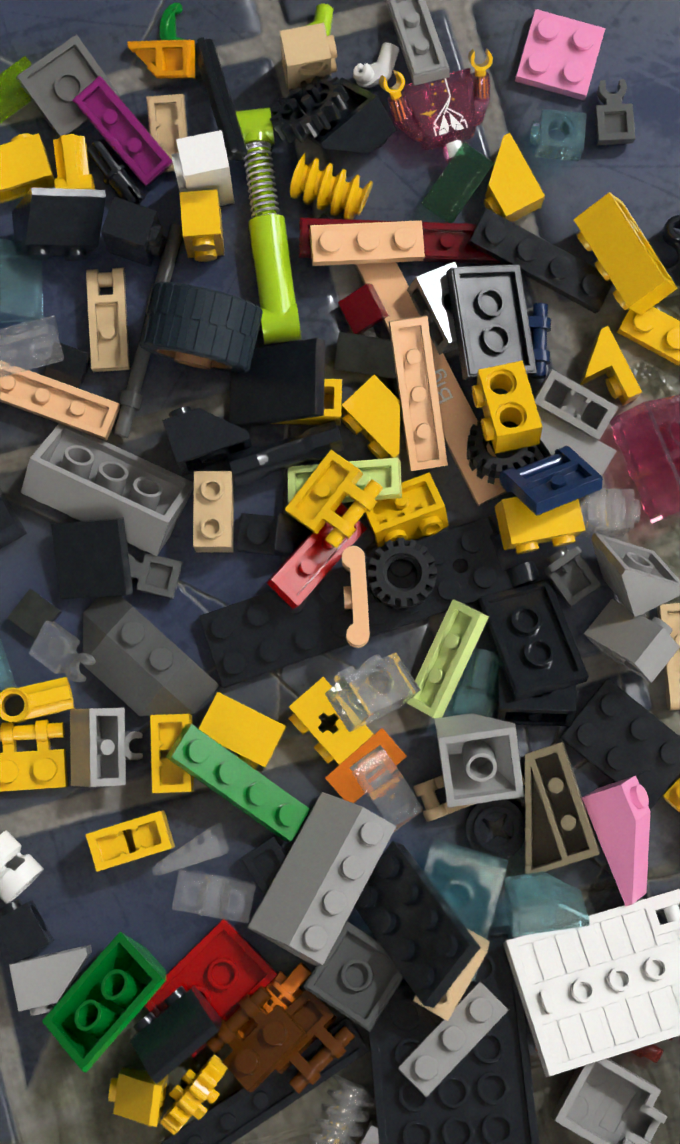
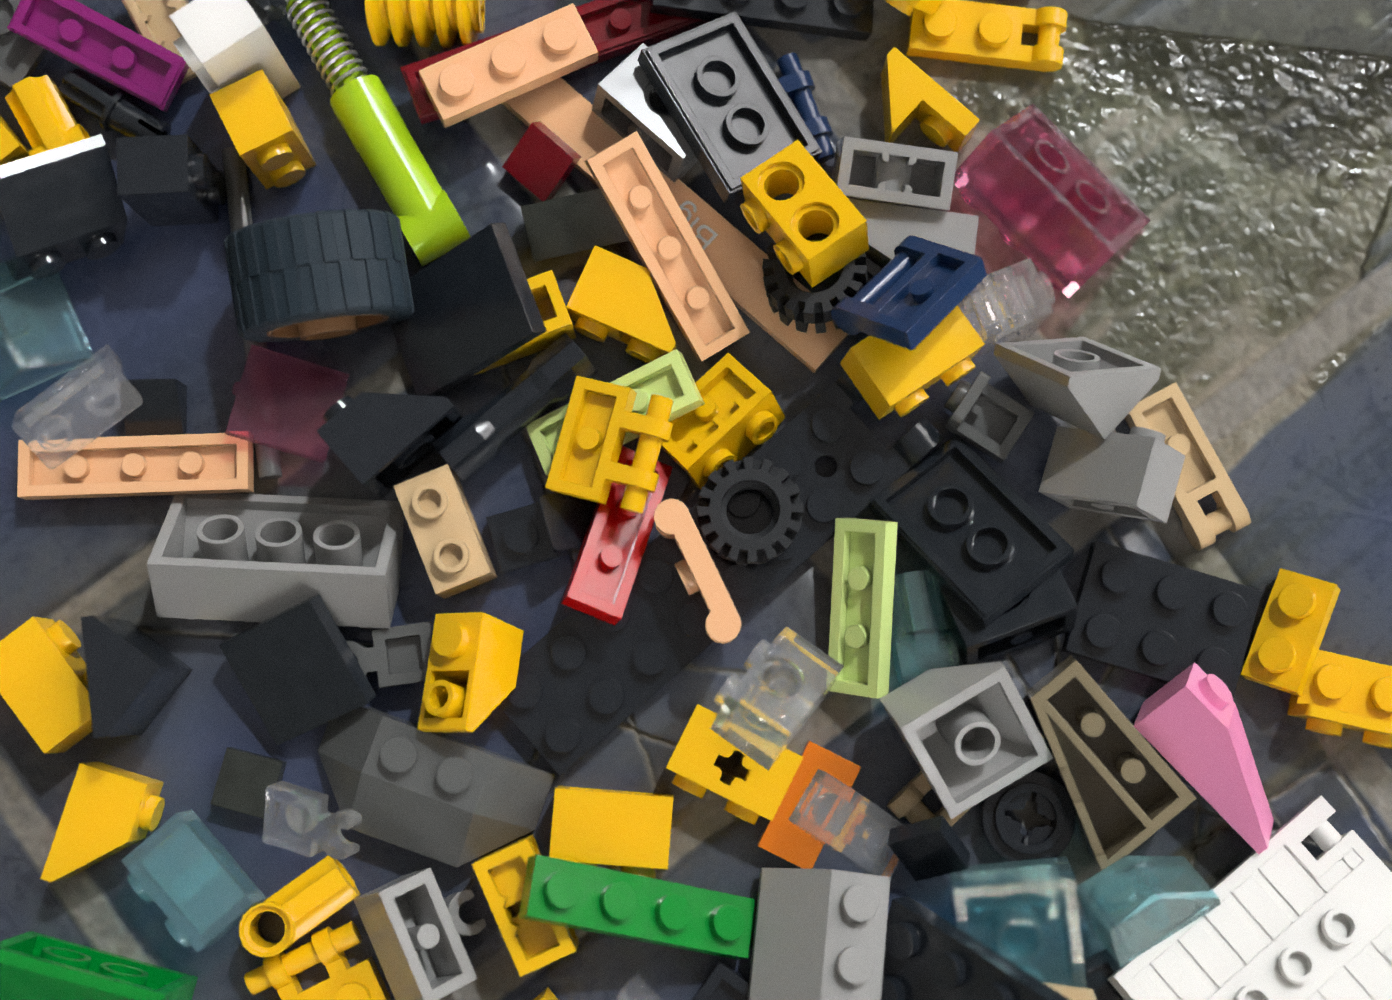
camera: 20 degrees left, 0 degrees up
(108, 321) = (186, 322): tan plate -> none
(148, 394) = (284, 403): none -> clear pink piece
(194, 600) = (468, 670): none -> yellow slope
(427, 820) = (929, 848): none -> black tile

